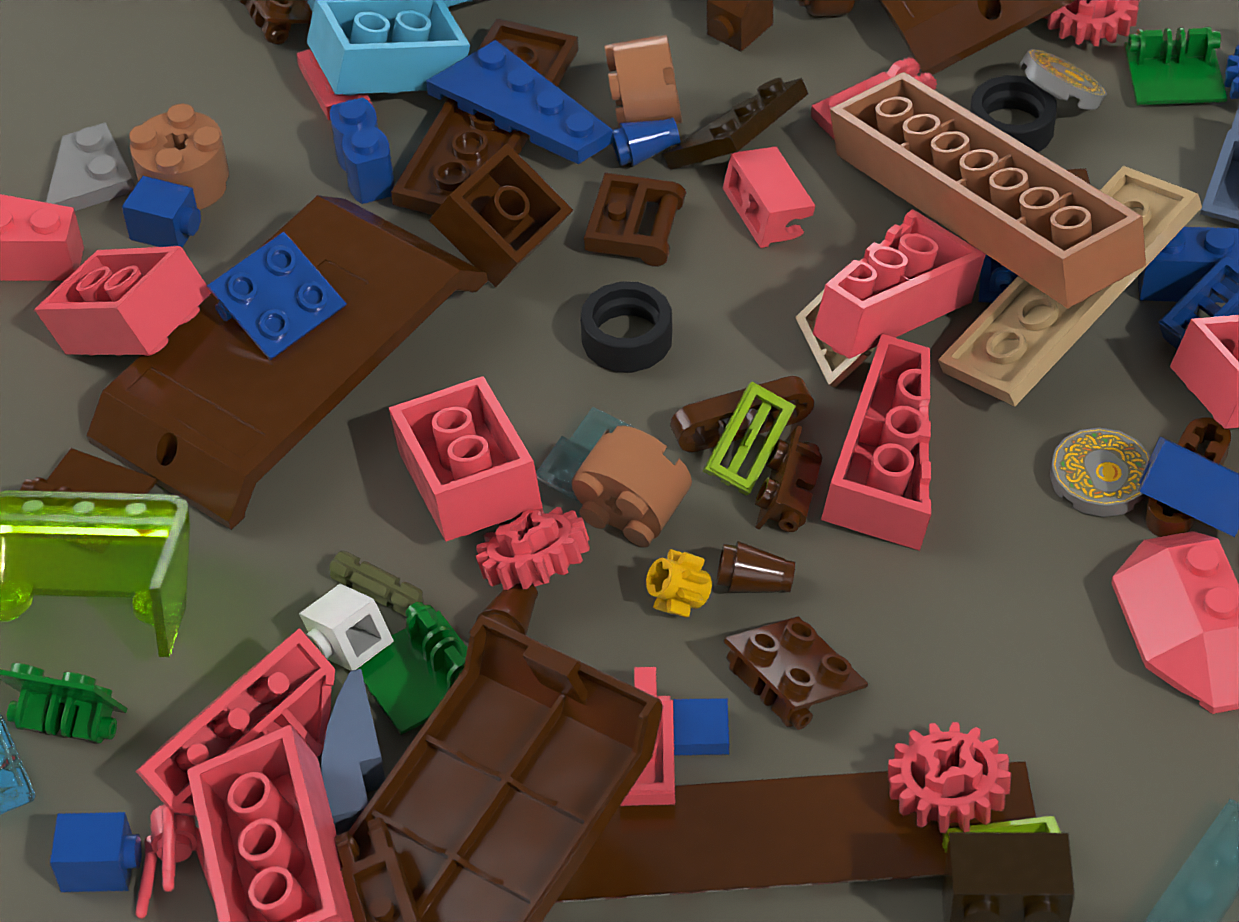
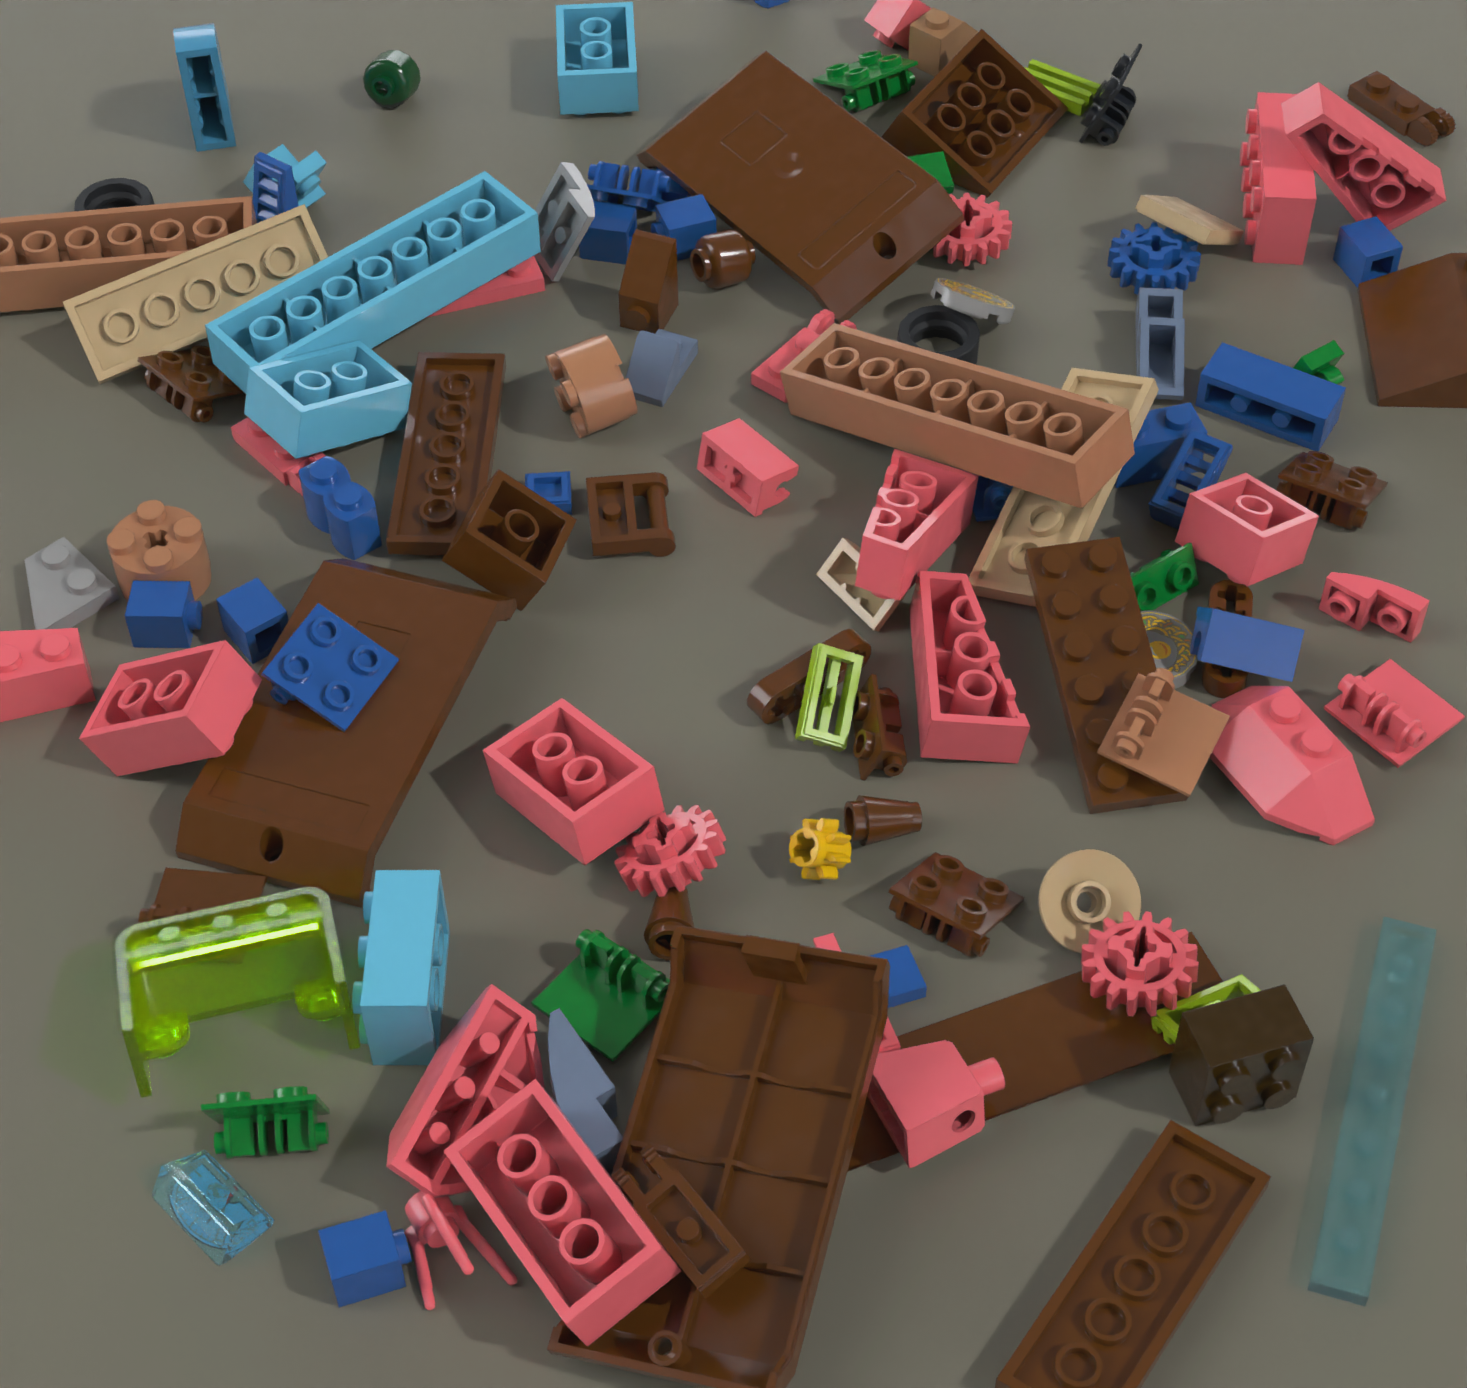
camera: 20 degrees left, 0 degrees up
(235, 591) = (402, 967): none -> medium azure brick
(238, 231) = (252, 619): none -> blue brick
(346, 627) = (525, 969): white brick -> none
(374, 582) = (528, 923): olive axle -> none
(523, 101) = (480, 426): blue wing -> none
(570, 179) = (553, 487): none -> blue tile
(570, 454) = (680, 747): clear light blue slope -> none
(629, 300) = (668, 592): black tyre -> none
(630, 484) = (740, 767): nougat brick -> none
(643, 139) = (605, 440): blue cone -> none
(683, 850) = (931, 1097): none -> coral torso
(724, 78) = (659, 364): none -> sand blue slope
(739, 125) = (693, 407): dark brown wing -> none
(920, 671) = (1101, 877): none -> tan dish
(1037, 484) = (1095, 656): none -> reddish brown plate
(1067, 554) = (1163, 732): none -> nougat hinge
(1135, 403) = (1165, 577): none -> green hinge
(1175, 69) = (1062, 268): green hinge -> none

